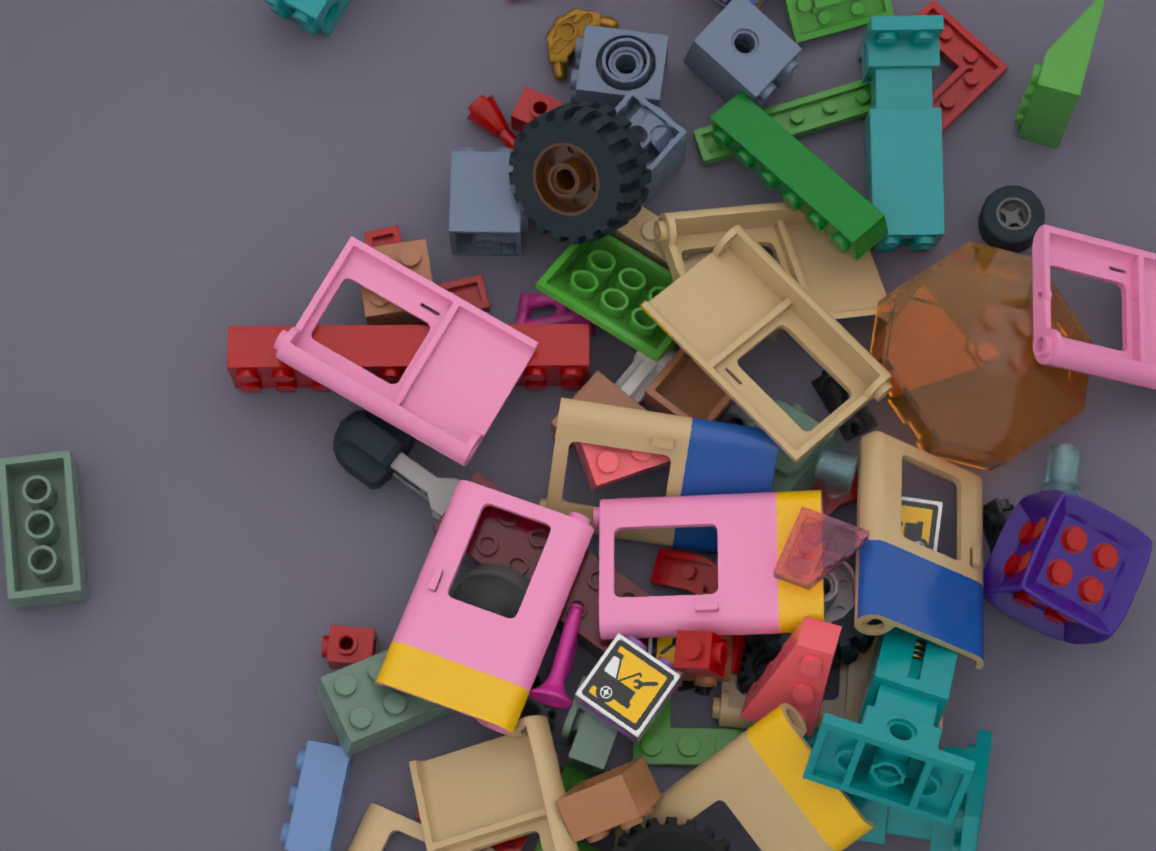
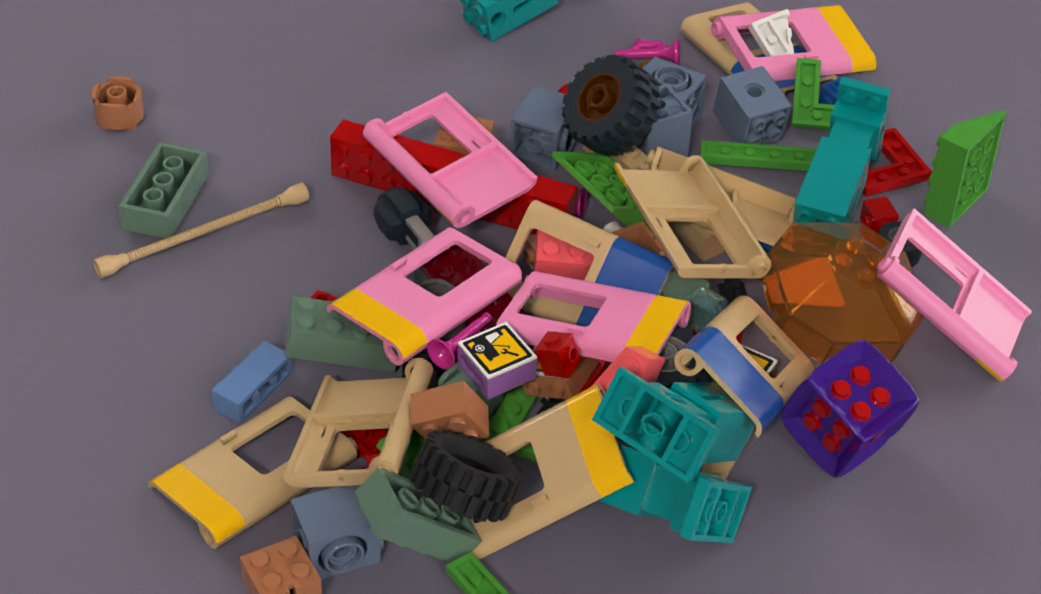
camera: 20 degrees right, 30 degrees down
(38, 680) = (110, 264): none -> tan hose
(798, 176) = (759, 163): green brick -> none
(817, 548) = (669, 316): clear pink wing -> none
(969, 180) = (877, 212): none -> red brick

